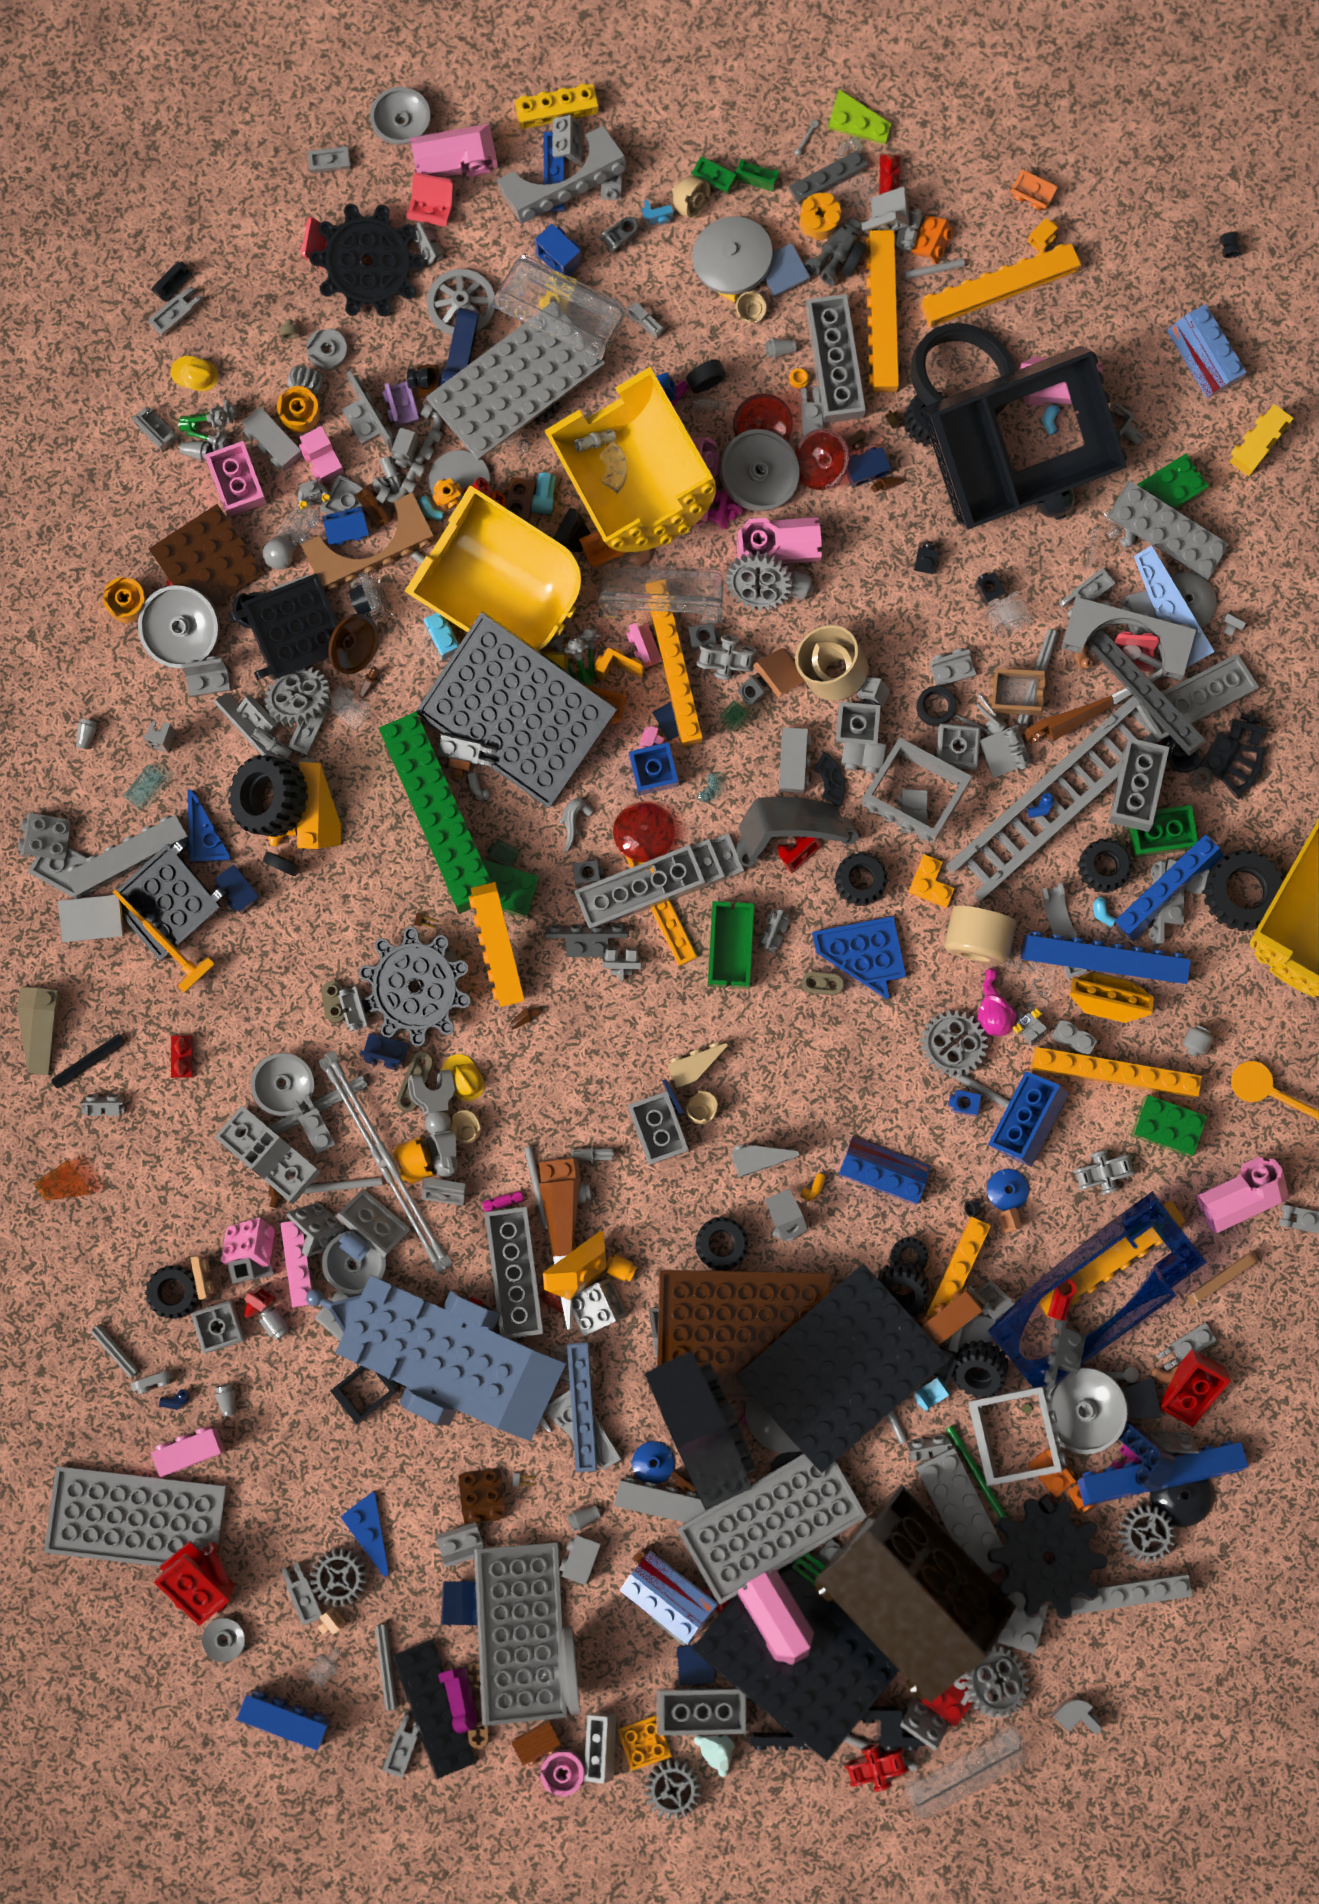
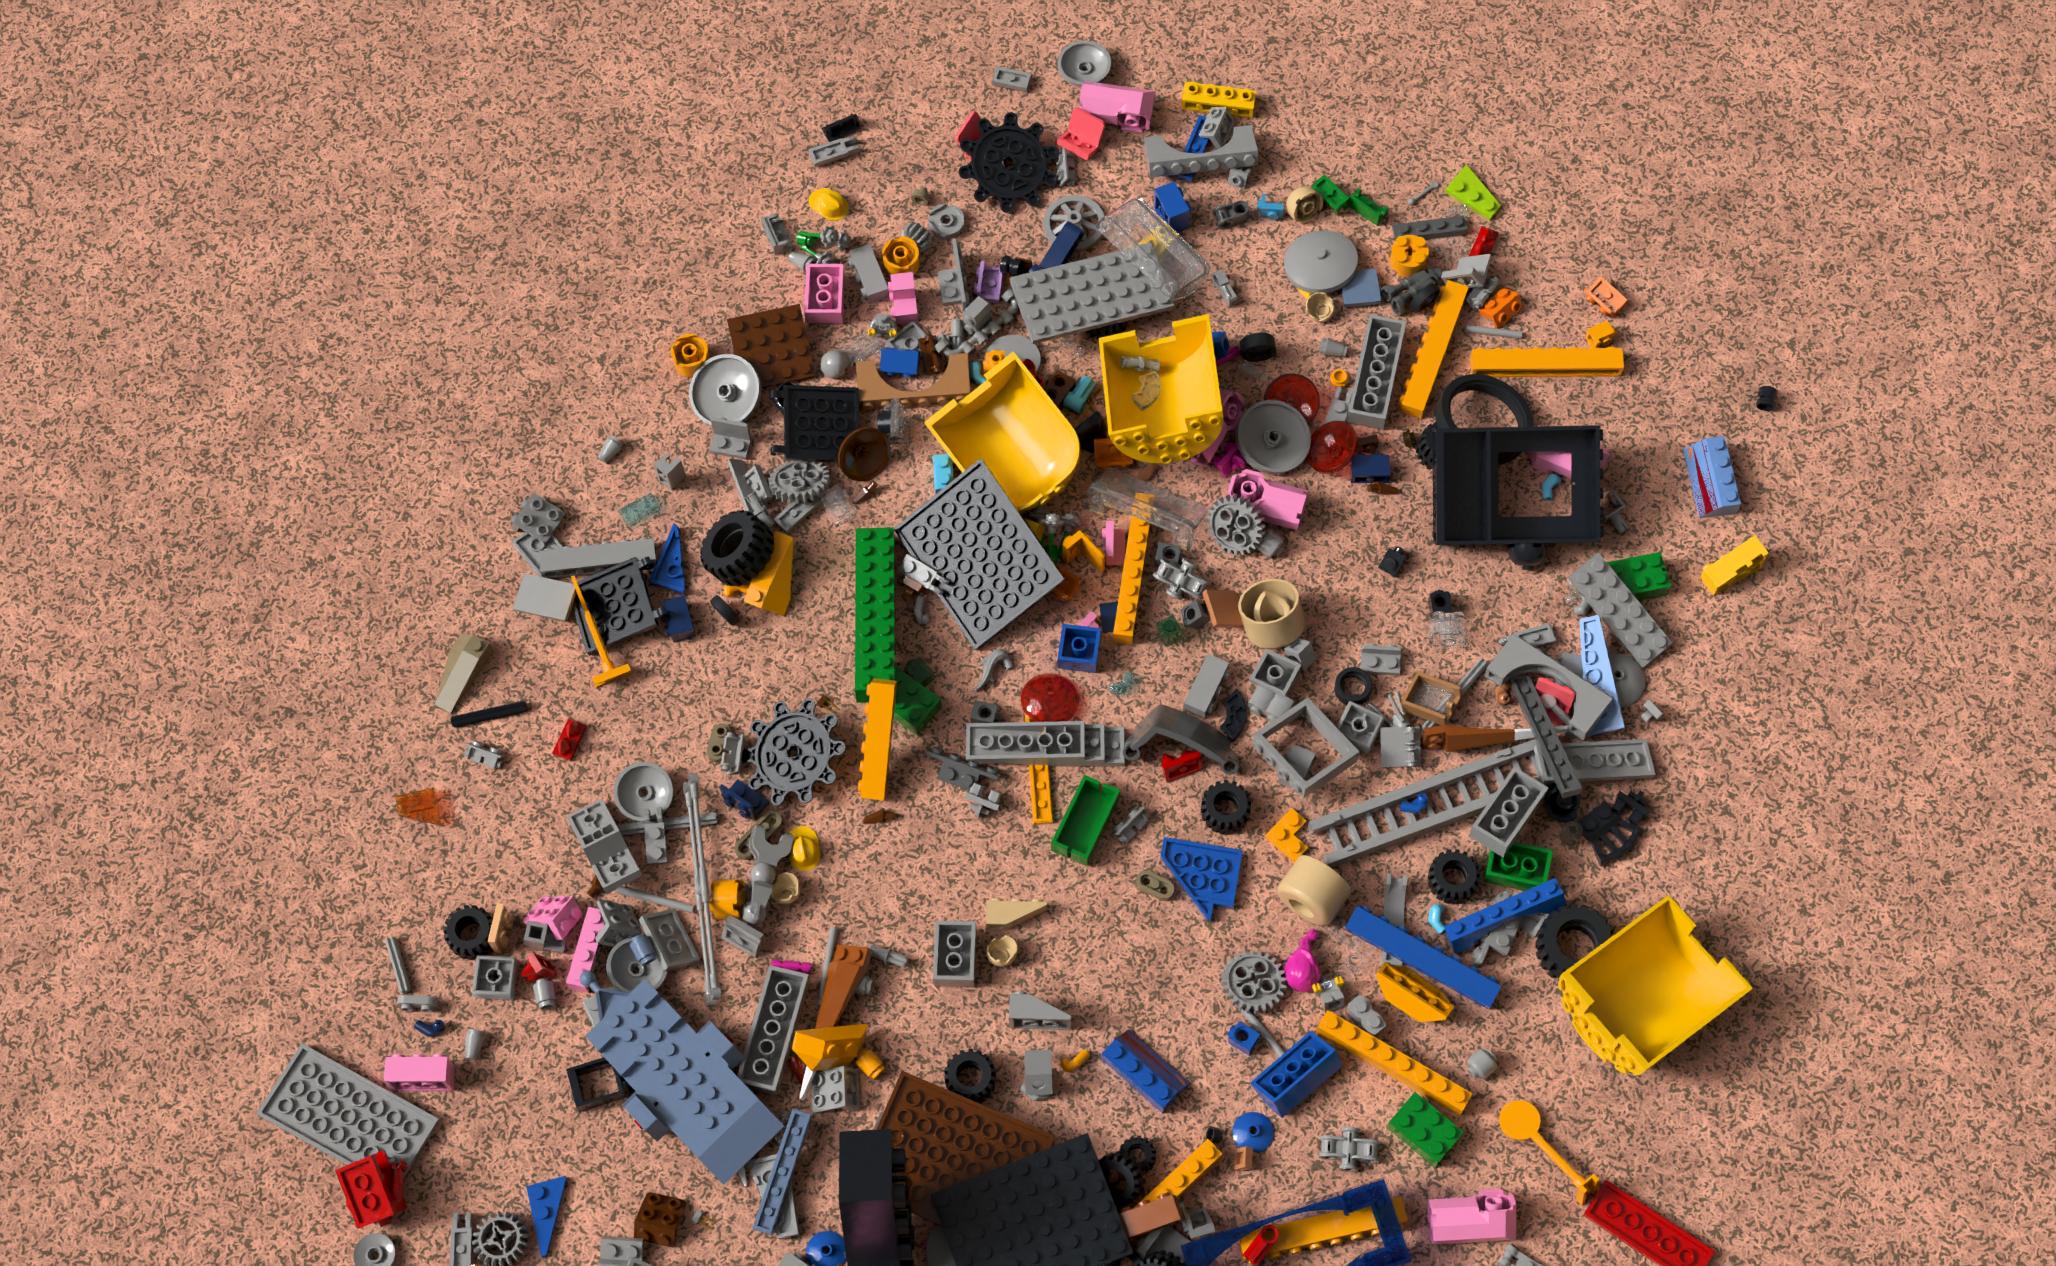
camera: 30 degrees right, 15 degrees down
(672, 1097) = (979, 934): dark blue piece -> none

